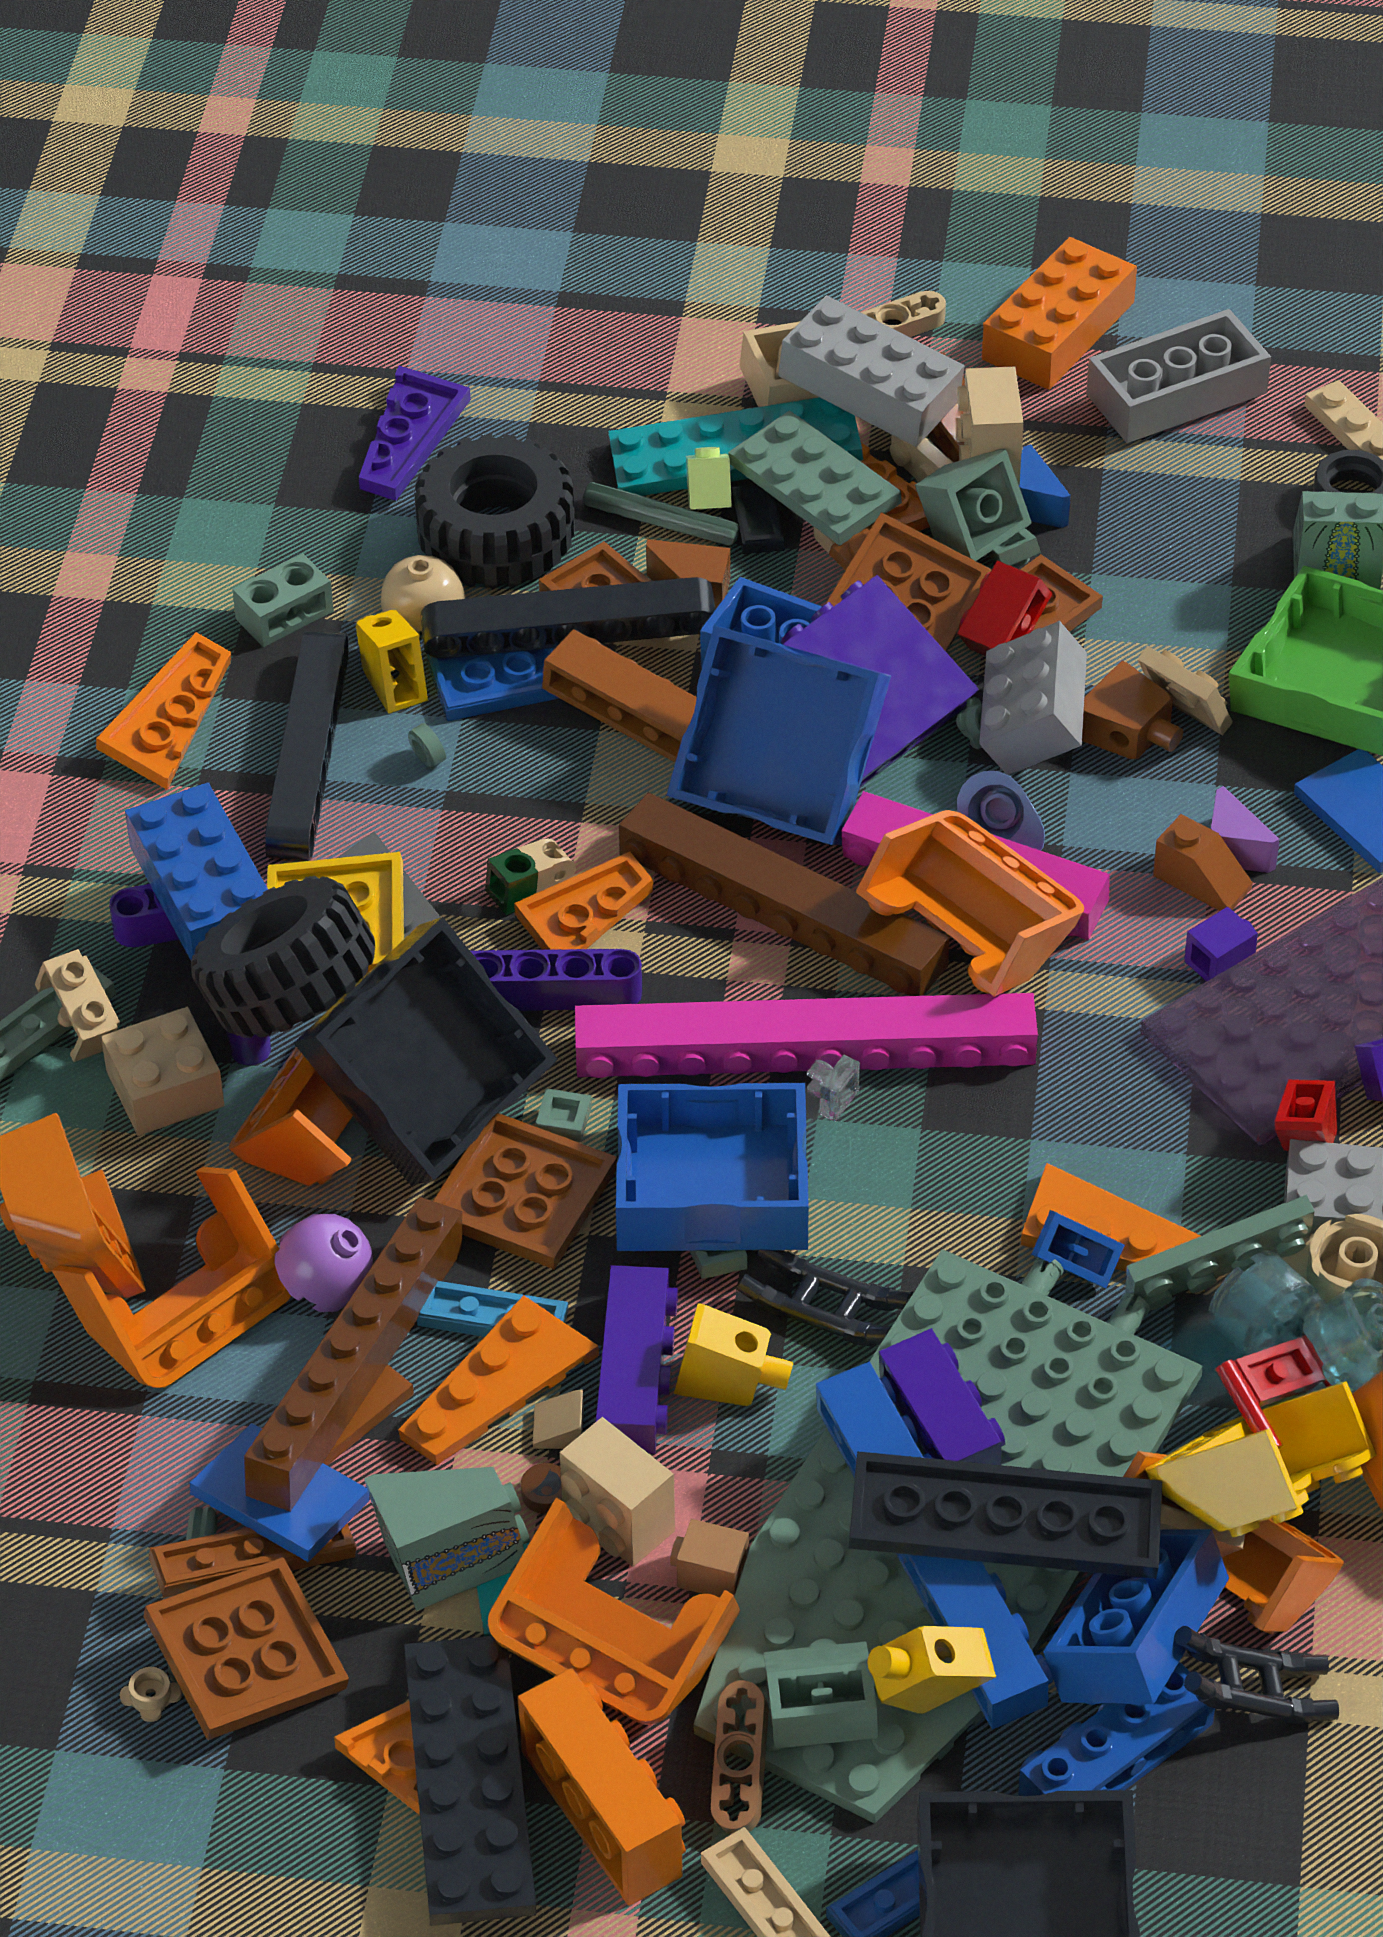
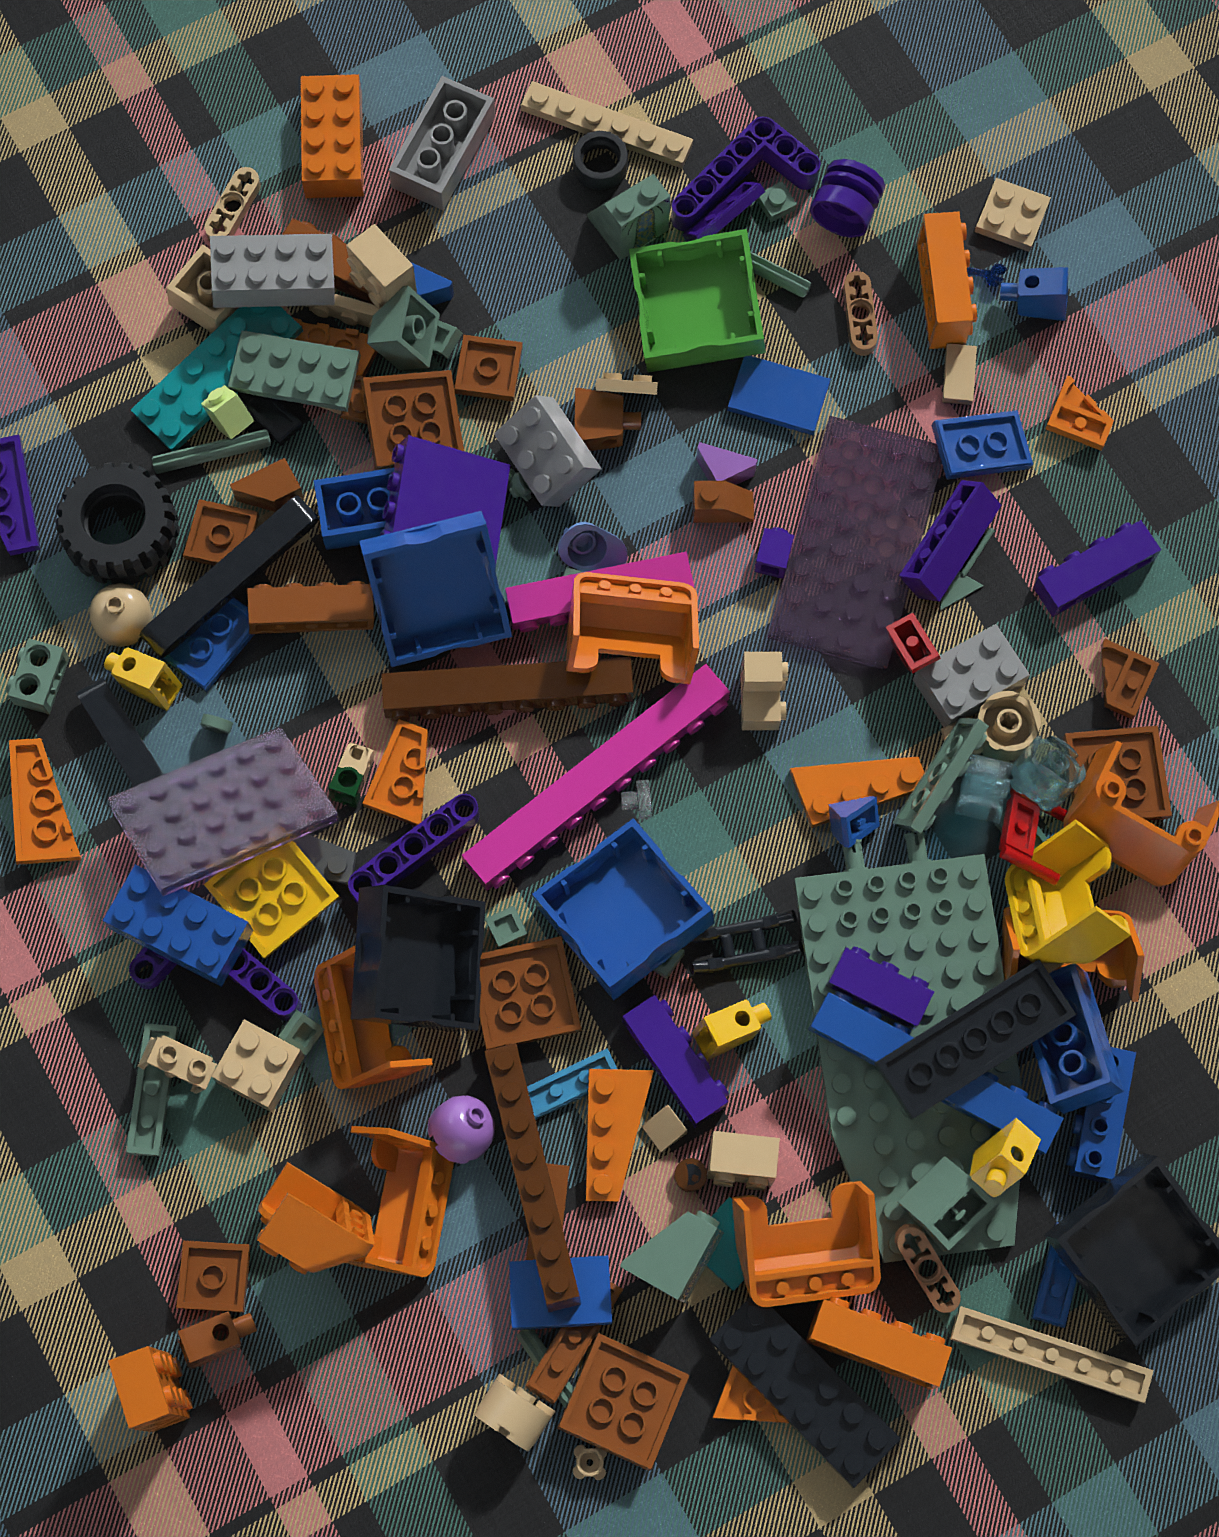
camera: 40 degrees left, 25 degrees up
(108, 1567) = (514, 1413): none -> tan brick
(241, 1070) = (301, 1032): none -> sand green plate
(283, 957) = (324, 970): black tyre -> none
(352, 803) = (222, 810): none -> clear purple plate
(710, 1558) = (815, 1157): medium nougat brick -> none
(1004, 609) = (481, 398): red brick -> none
(1082, 1060) = (761, 682): none -> tan brick
(1270, 1669) = (1159, 1028): black piece -> none

